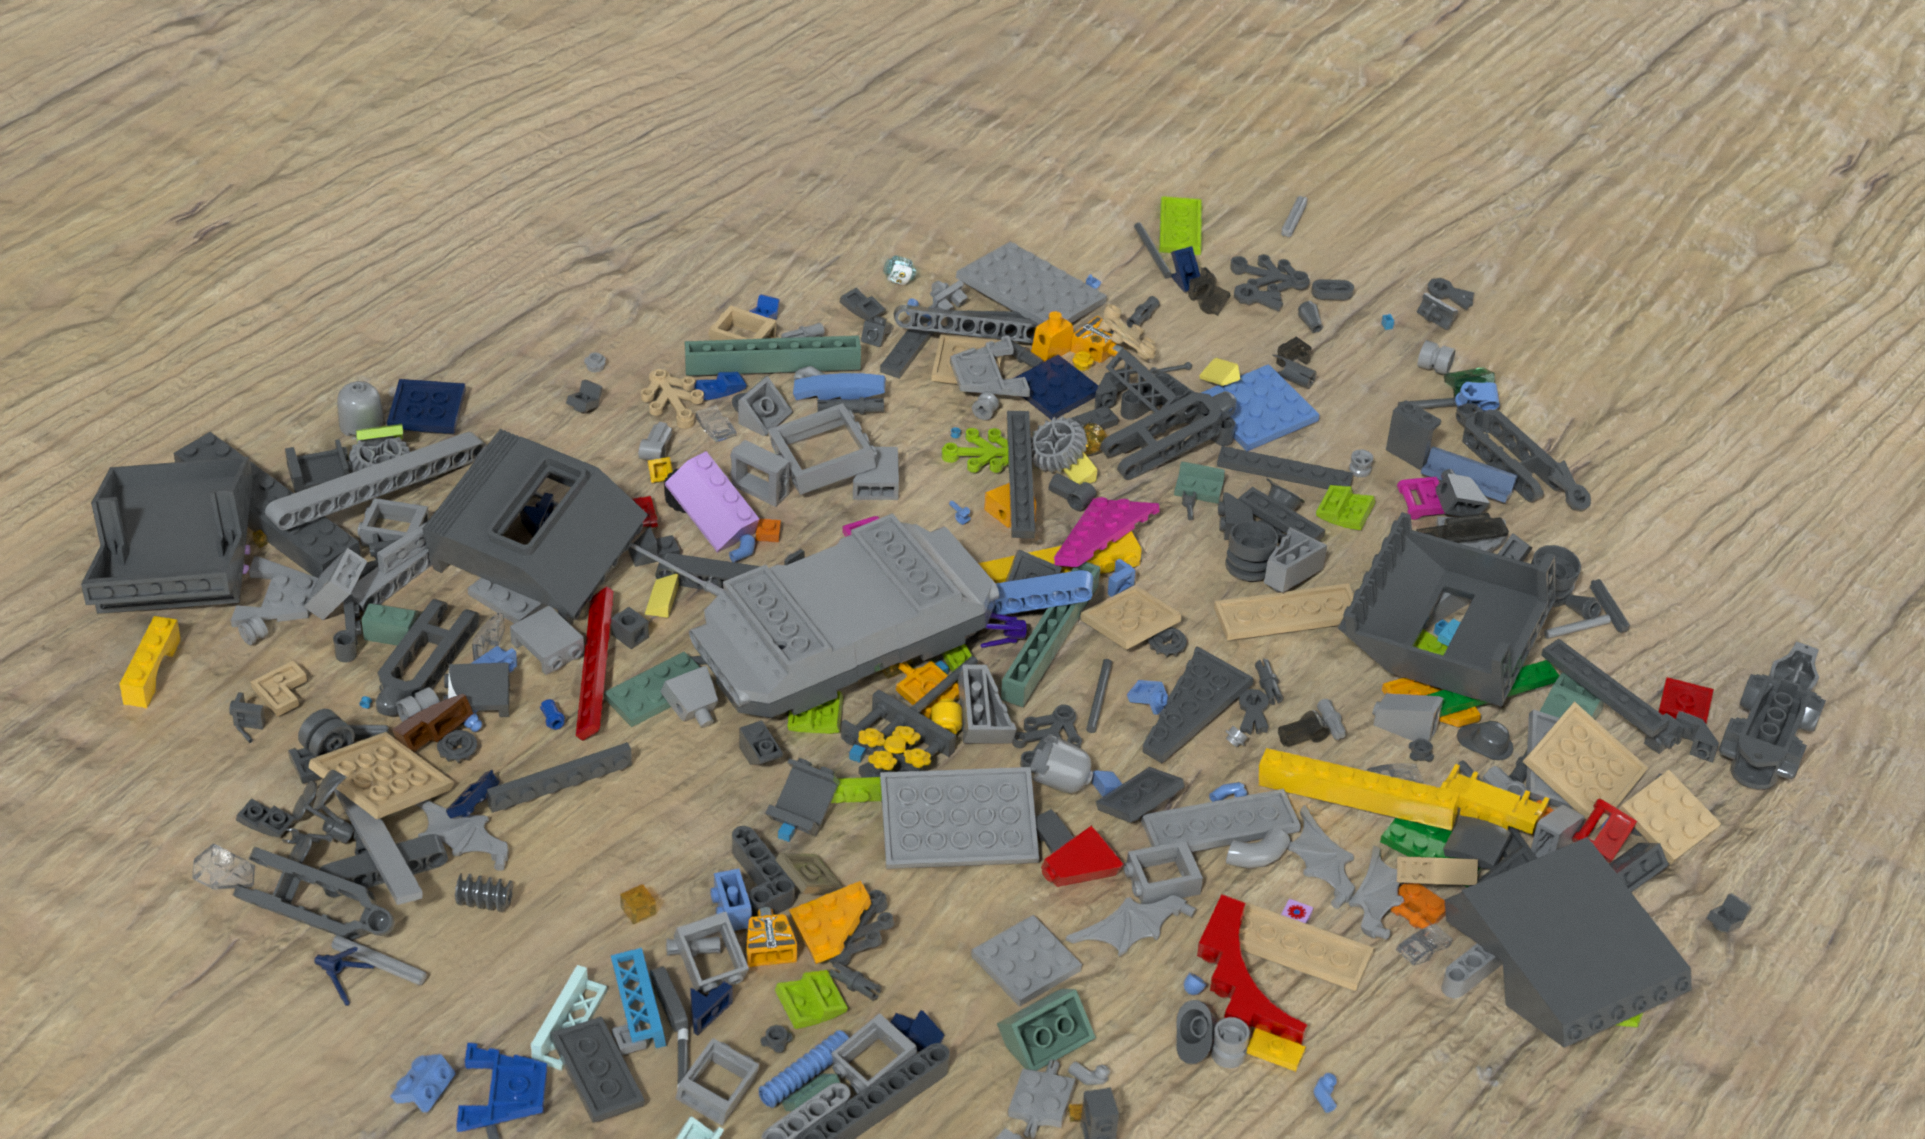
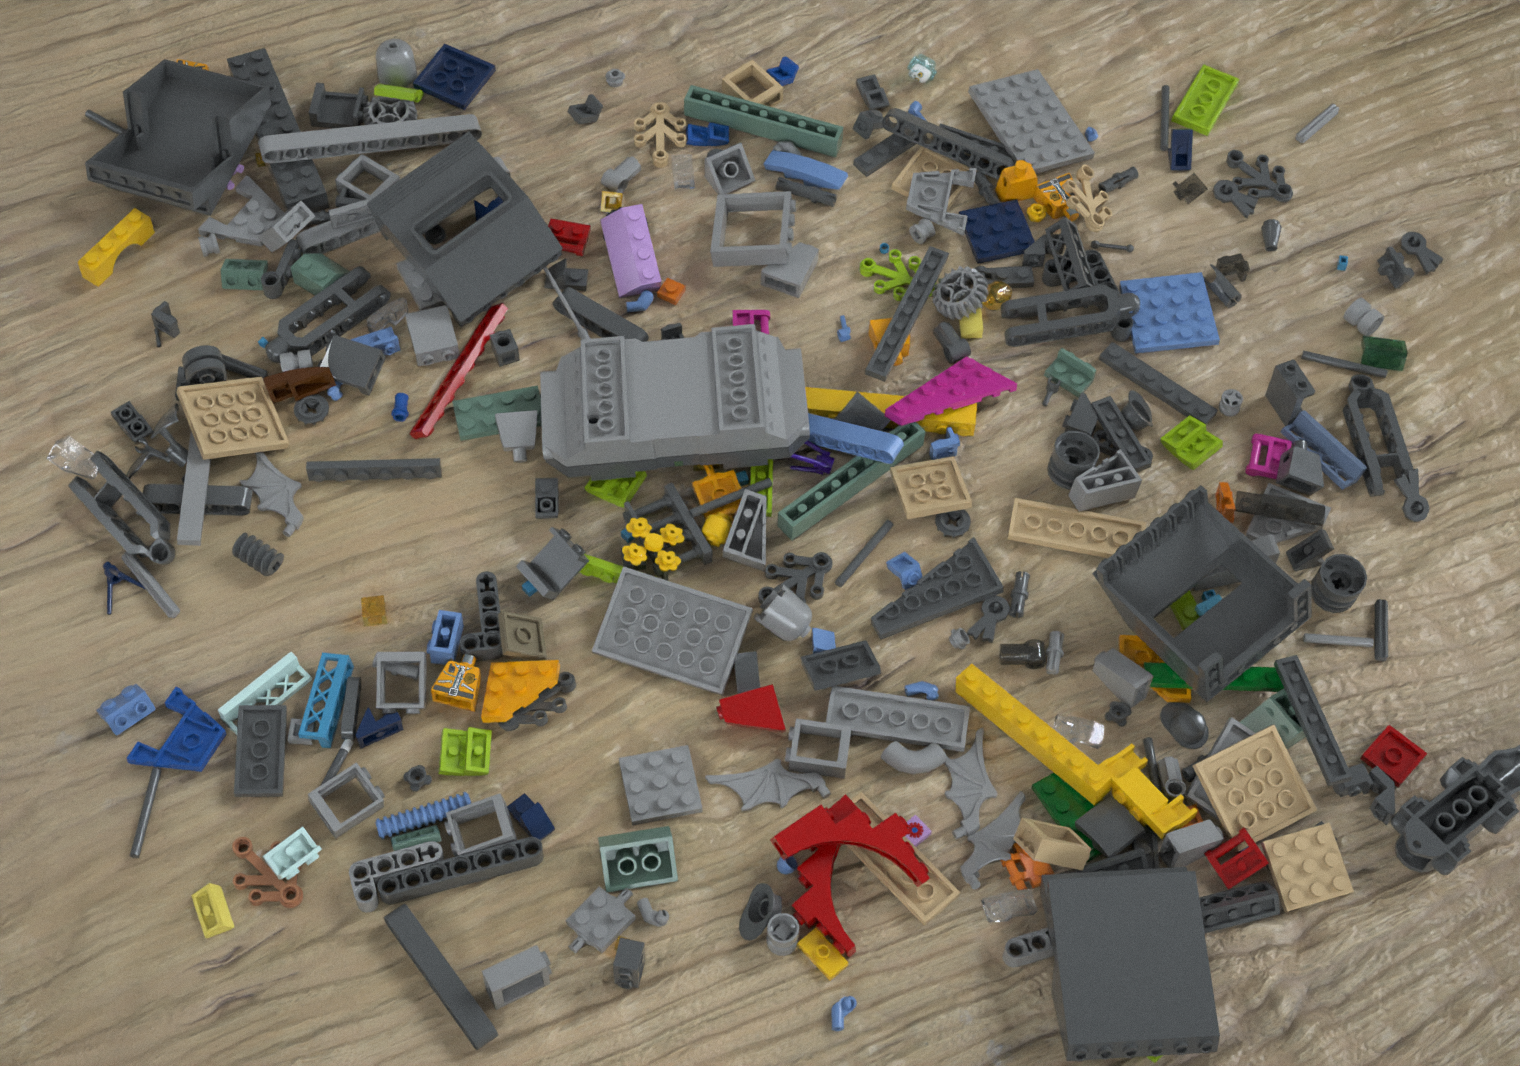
camera: 25 degrees right, 15 degrees up
(64, 554) = (104, 122): none -> dark grey bar
(276, 686) = (200, 301): tan plate -> none
(308, 646) = (243, 274): none -> sand green bracket
(472, 795) = (297, 461): dark blue hinge -> none
(663, 596) = (549, 326): light yellow slope -> none
(777, 467) = (687, 235): light grey window -> none
(809, 331) = (804, 106): light grey axle -> none
(855, 981) = (508, 750): dark grey pin -> none
(943, 294) = (948, 105): light grey hips -> none
(1200, 285) = (1184, 169): clear smoke bracket -> none
(1221, 372) = (1151, 267): light yellow slope -> none
(1254, 919) = (855, 830): none -> red arch
(1332, 289) = (1308, 212): dark grey plate -> none
(1482, 394) = (1382, 371): medium blue piece -> none
(1585, 606) = (1355, 625): dark grey cone -> none
(1730, 914) = (1304, 987): dark grey bracket -> none

